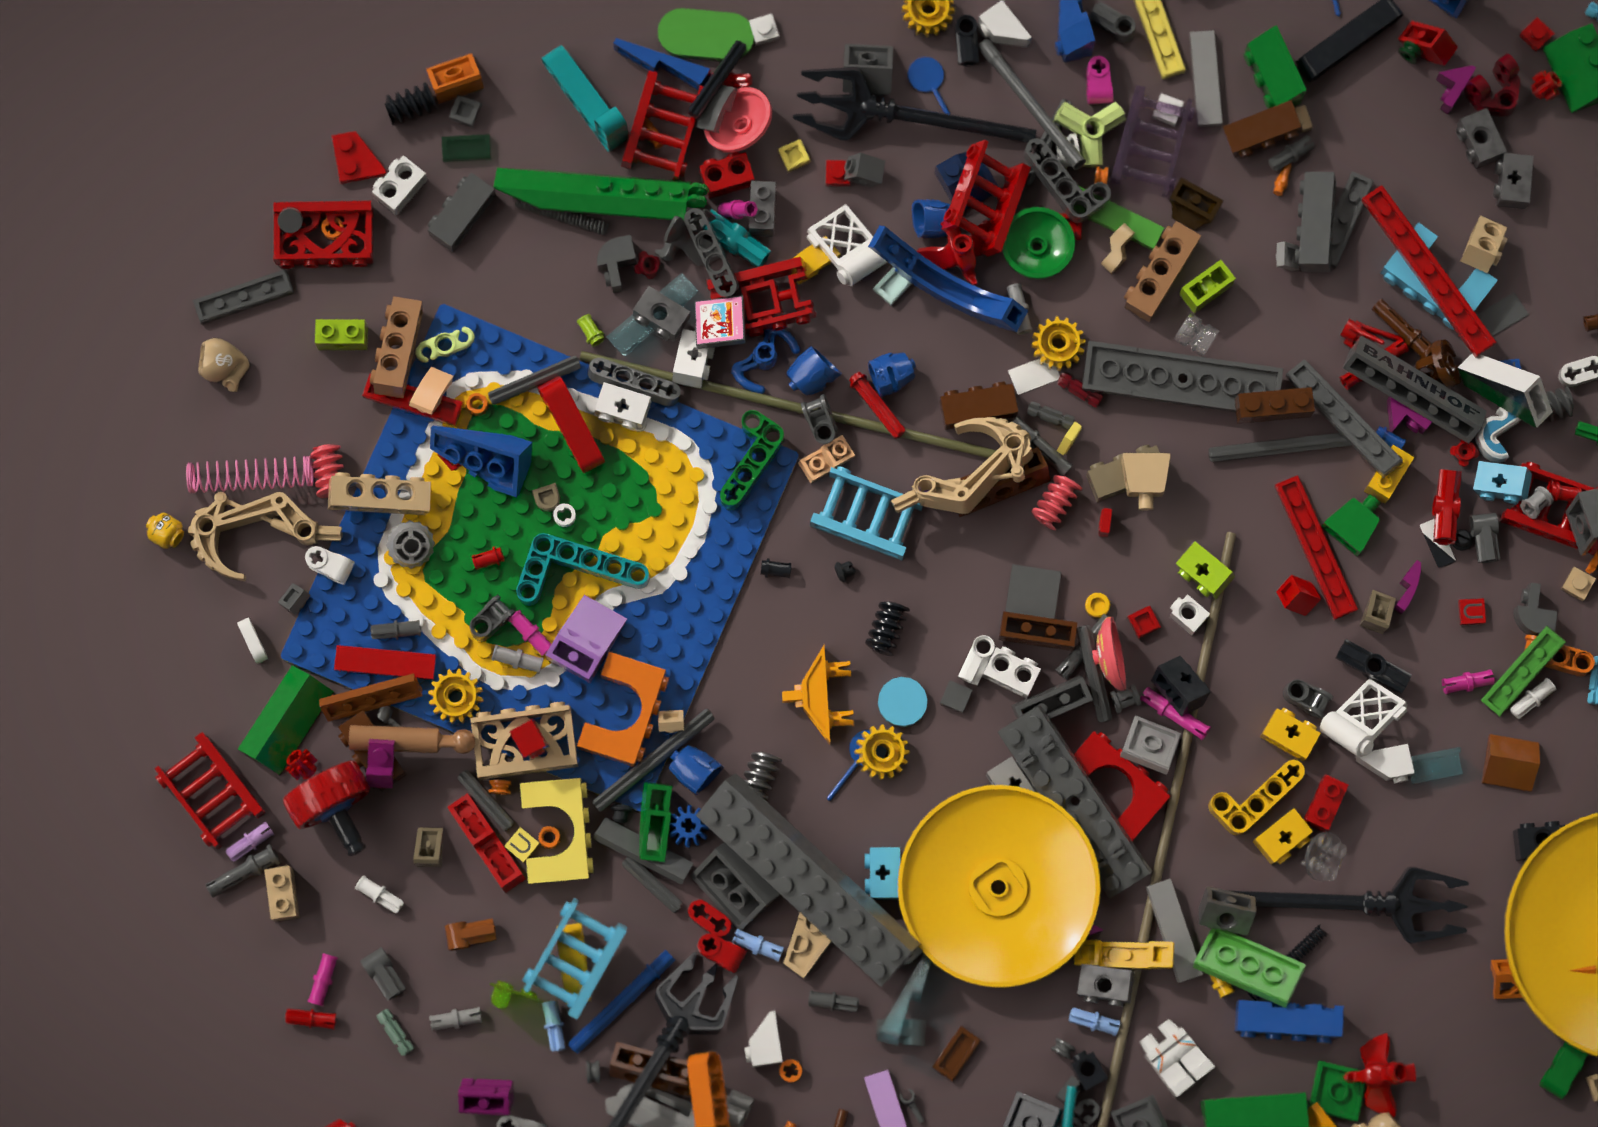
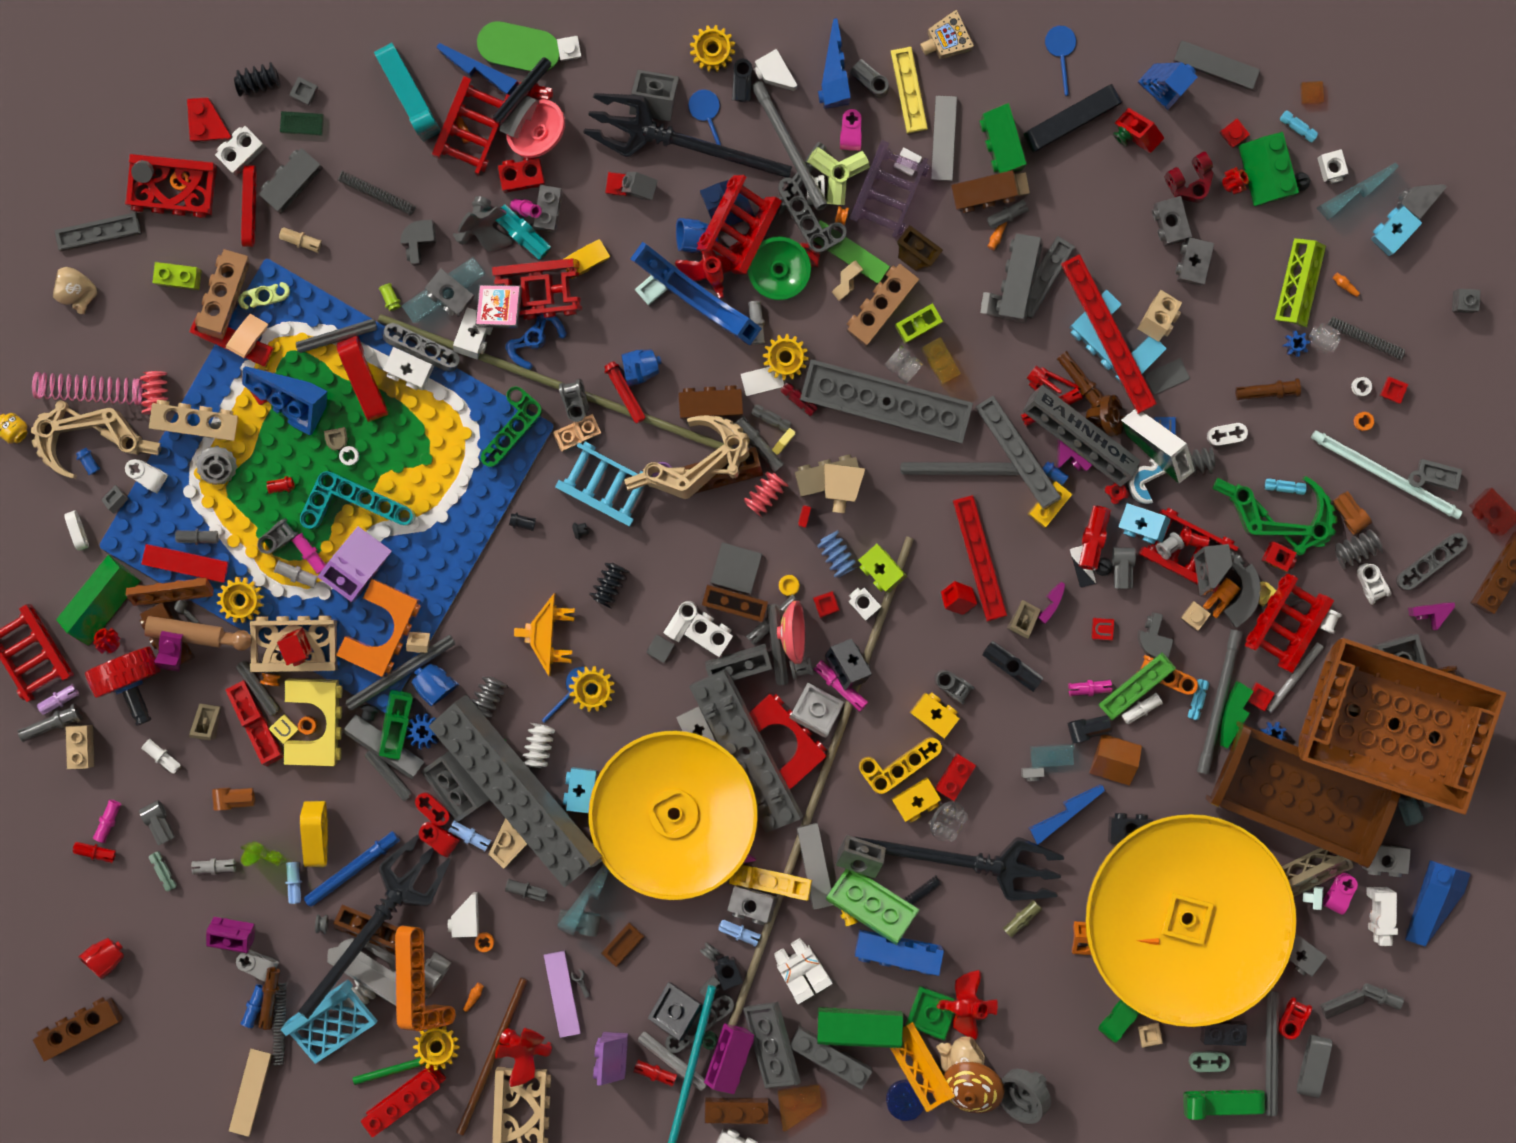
camera: 10 degrees right, 10 degrees up
(257, 559) = (87, 461): none -> blue pin
(416, 246) = (248, 206): none -> red beam
(455, 78) = (297, 60): orange slope -> none
(477, 412) = (279, 351): orange axle -> none
(479, 277) = (300, 239): none -> tan axle
(599, 957) = (333, 836): medium azure fence -> none
(601, 193) = (411, 178): green hinge -> none
(653, 262) = (450, 245): dark red plate -> none
(709, 253) = (494, 246): dark grey beam -> none
(794, 155) = (581, 164): light yellow tile -> none
(811, 372) = (573, 357): blue helmet -> none
(826, 826) = (538, 745): none -> white piece
(856, 263) = (621, 267): white piece -> none
(902, 701) = (614, 647): medium azure tile -> none
(1148, 561) = (836, 554): none -> medium blue piece
(1238, 326) = (940, 361): none -> clear yellow brick
(1274, 405) = (960, 436): reddish brown brick -> none
(1351, 733) = (985, 721): white piece -> none
(1353, 523) = (1014, 542): green torso -> none
(1389, 763) = (1014, 748): white slope -> none
(1415, 789) = (1032, 774): none -> light grey plate
(1429, 963) = (1022, 918): none -> olive pin
(1455, 80) = (1159, 167): magenta slope -> none
(1467, 823) = (1073, 806): none -> blue slope
(1469, 730) = (1083, 729): none -> black piece

